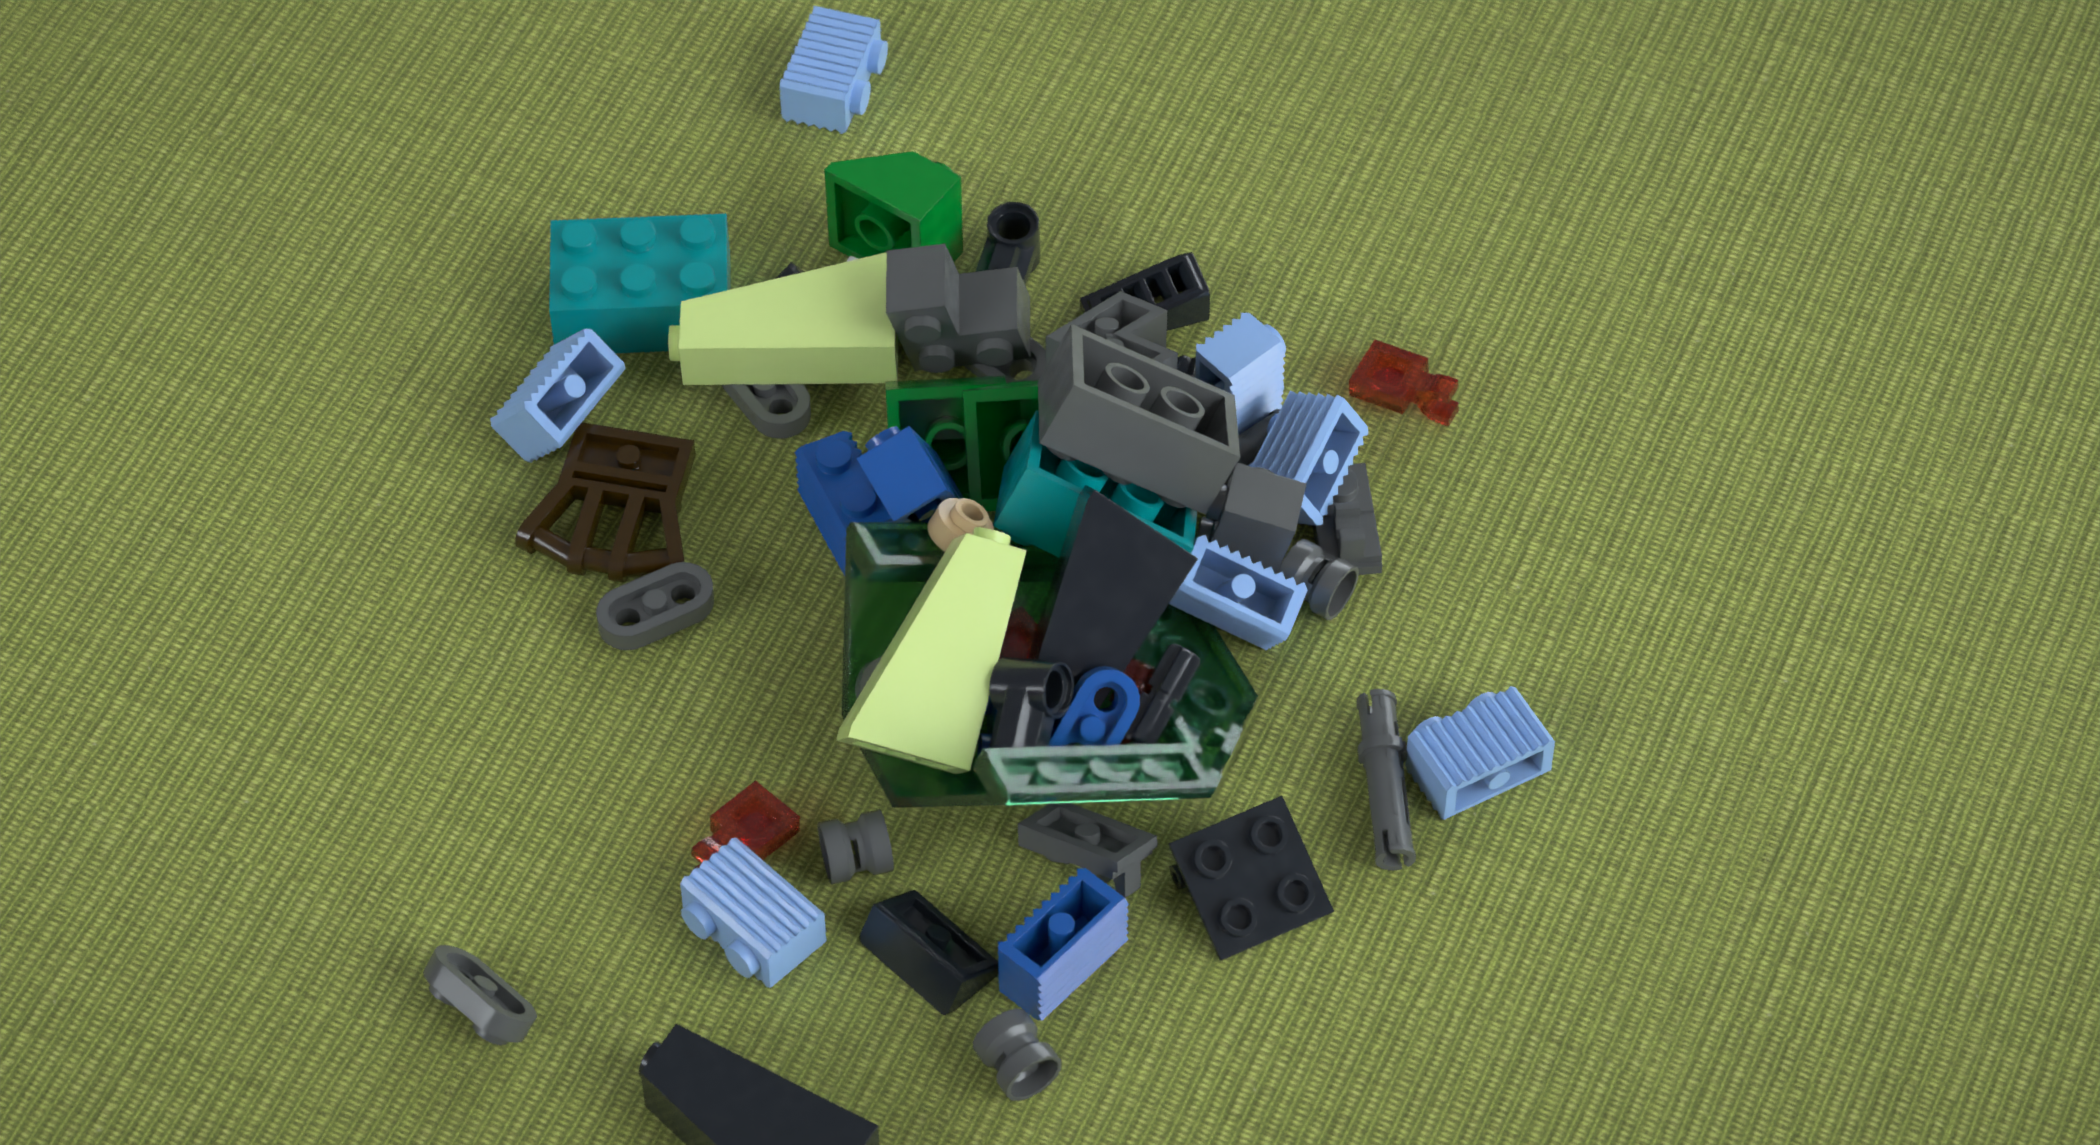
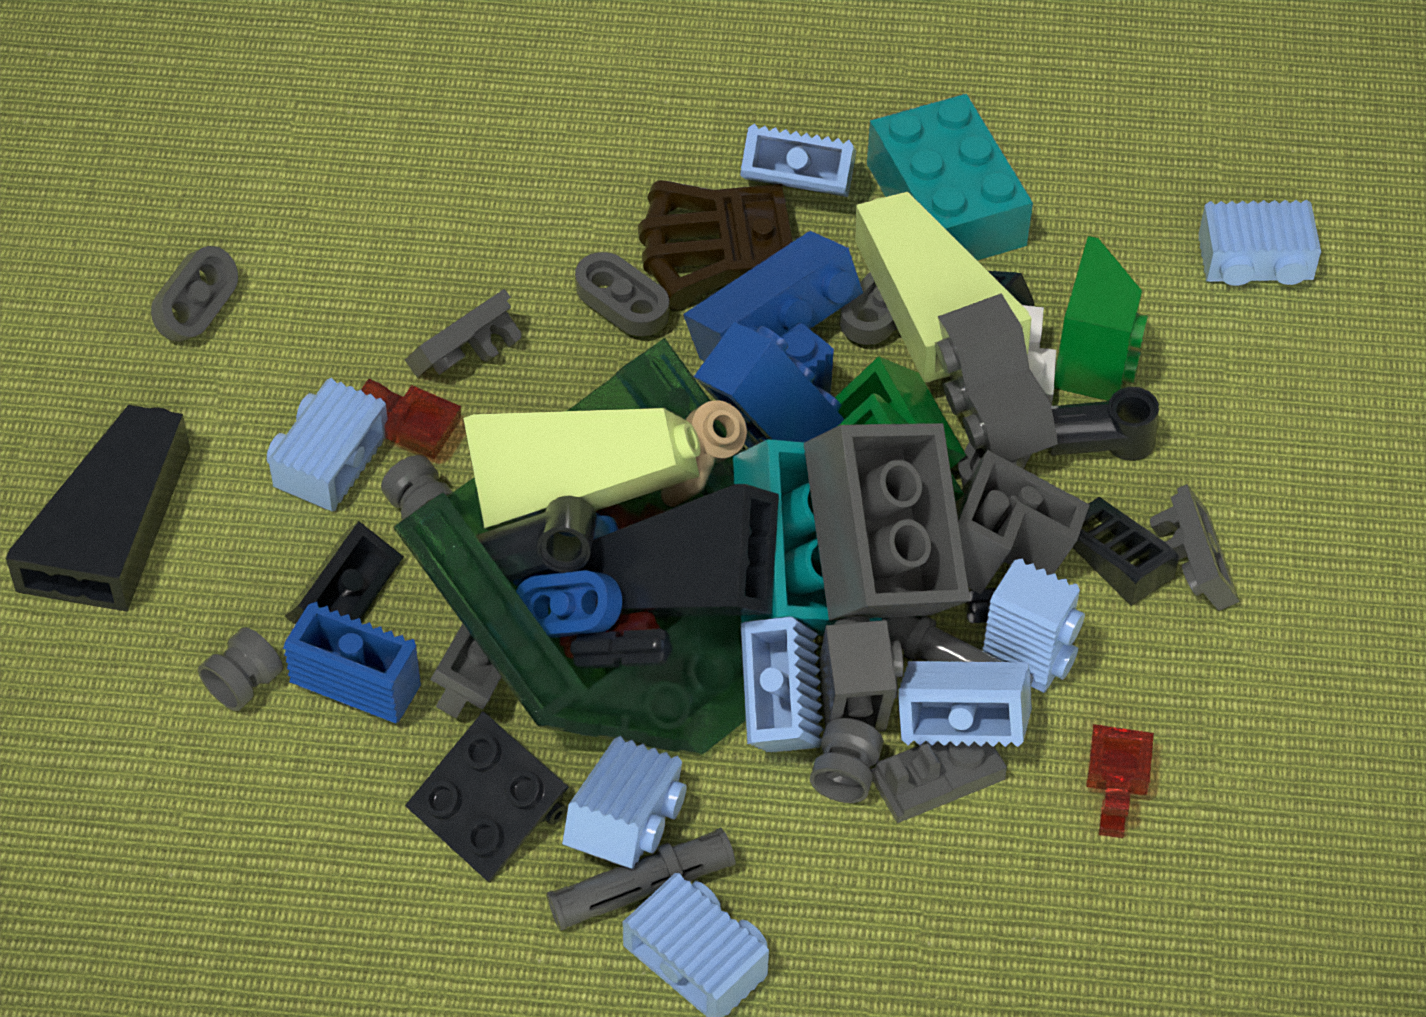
camera: 70 degrees right, 0 degrees up
(652, 758) = (473, 328): none -> dark grey plate
(747, 471) = (789, 288): none -> blue brick
(1206, 240) = (1197, 539): none -> dark grey plate
(1311, 759) = (625, 803): none -> light blue brick

